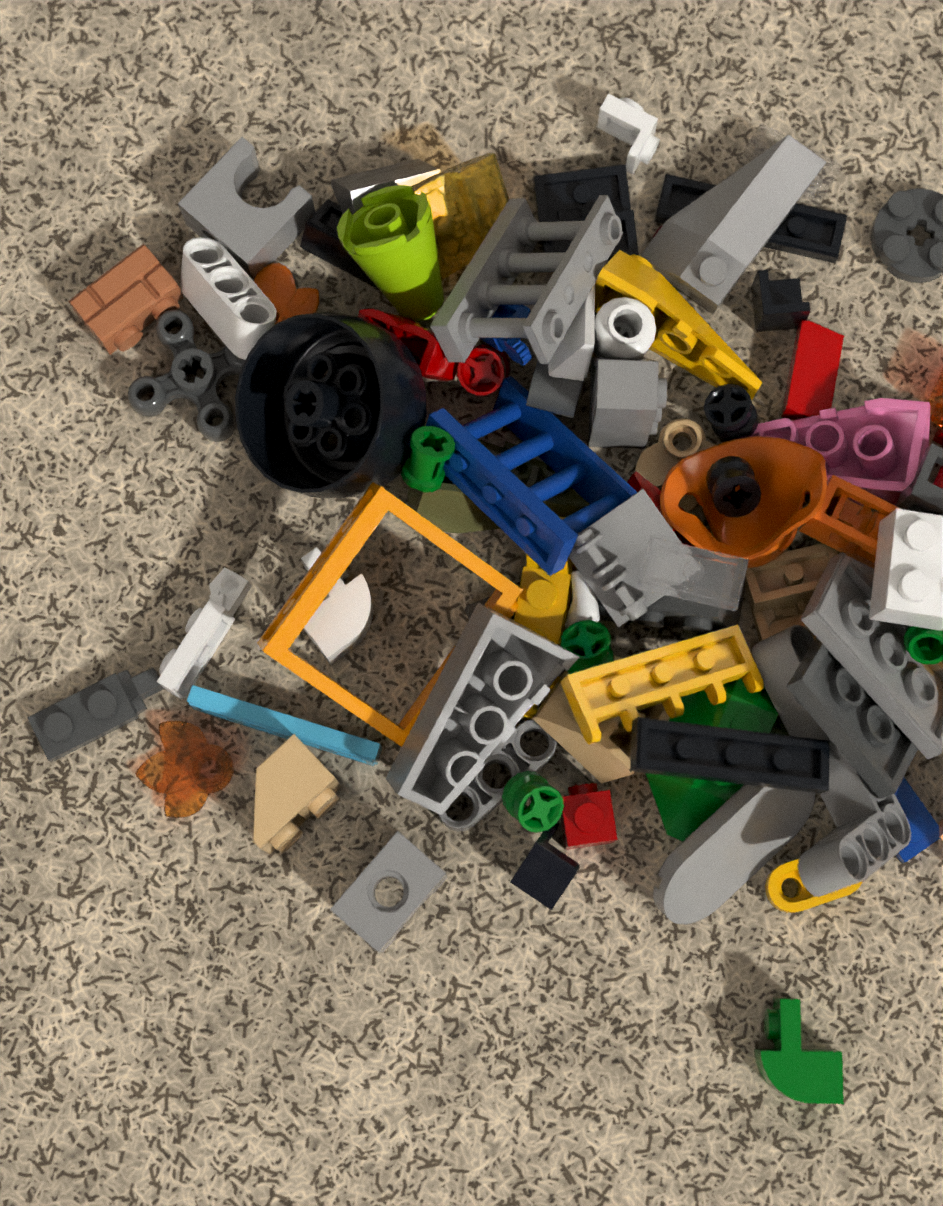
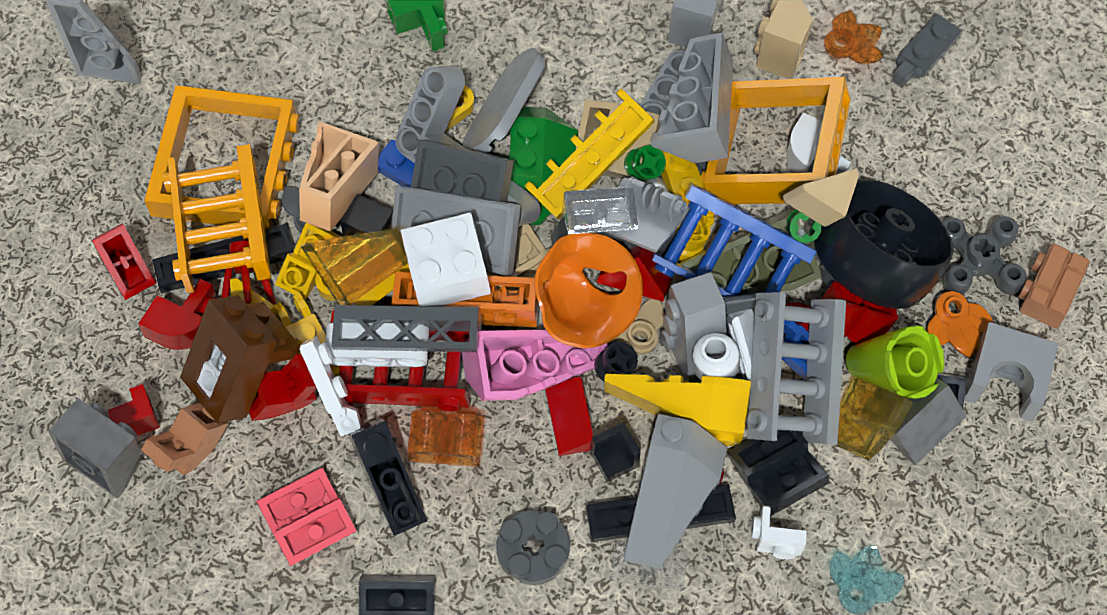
camera: 155 degrees right, 15 degrees down
(204, 634) = (885, 110): white hinge -> none
(225, 295) = (1004, 304): white beam -> none
(284, 725) = (857, 73): medium azure tile -> none
(395, 452) = (826, 198): none -> tan slope
(543, 56) = (866, 576): none -> clear light blue plate
(545, 804) = (638, 76): green wheel -> none
(545, 871) = (611, 53): black panel -> none
(587, 817) = (599, 84): red brick -> none
(721, 483) = (595, 303): black wheel -> none
(729, 755) = (532, 119): black tile -> none

